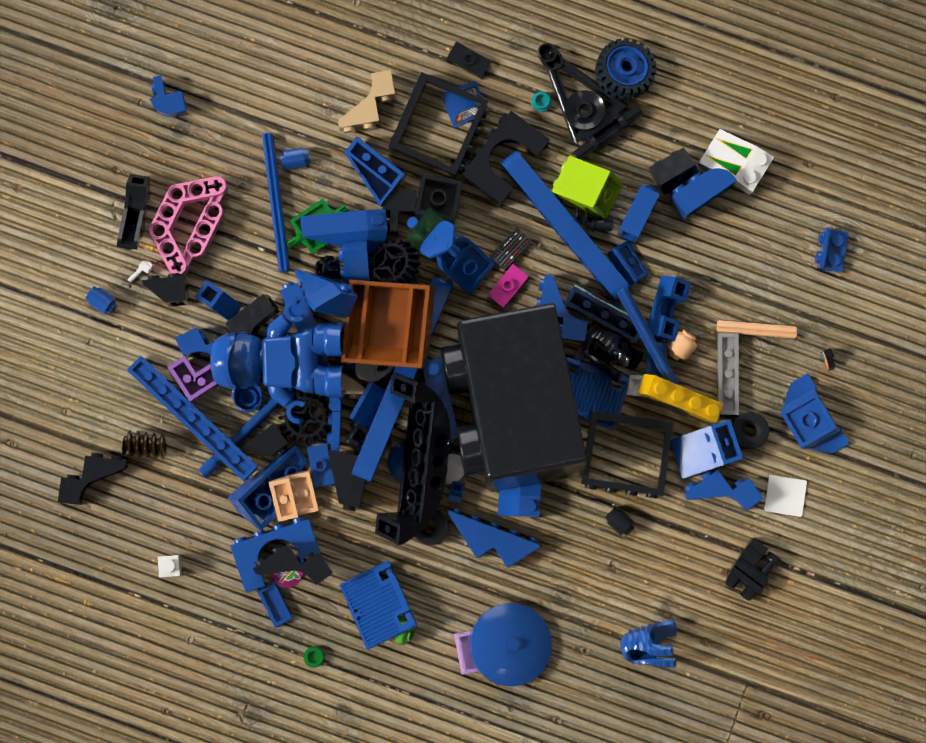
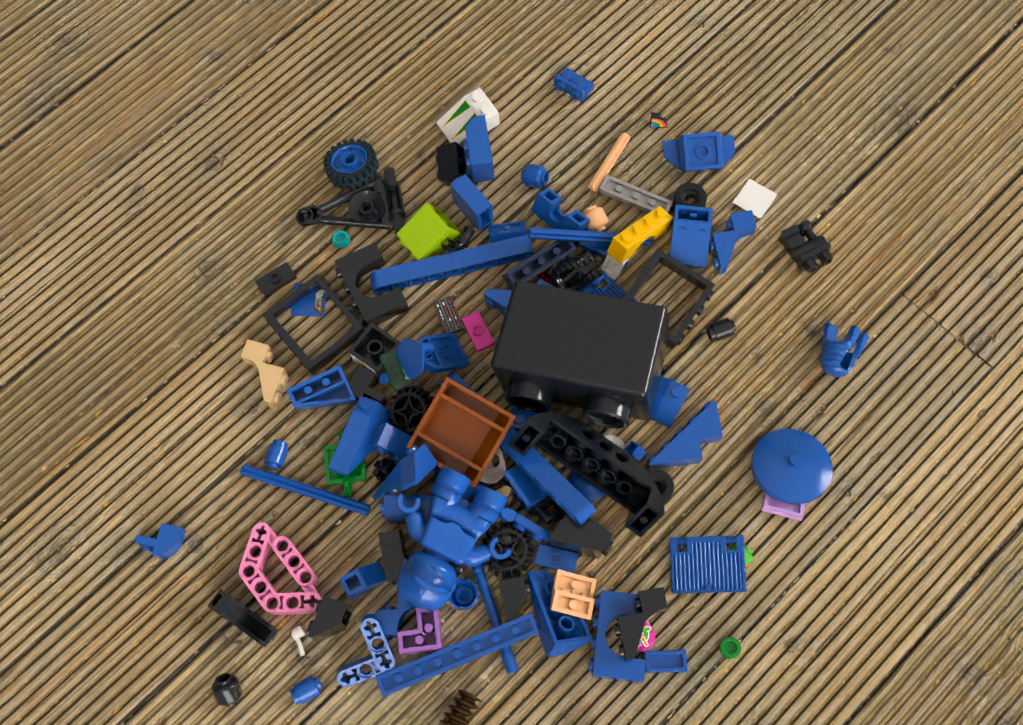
camera: 55 degrees left, 15 degrees down
(68, 231) = (226, 689): none -> black head
(154, 347) = (375, 659): none -> beam
(702, 261) = (535, 176): none -> blue head

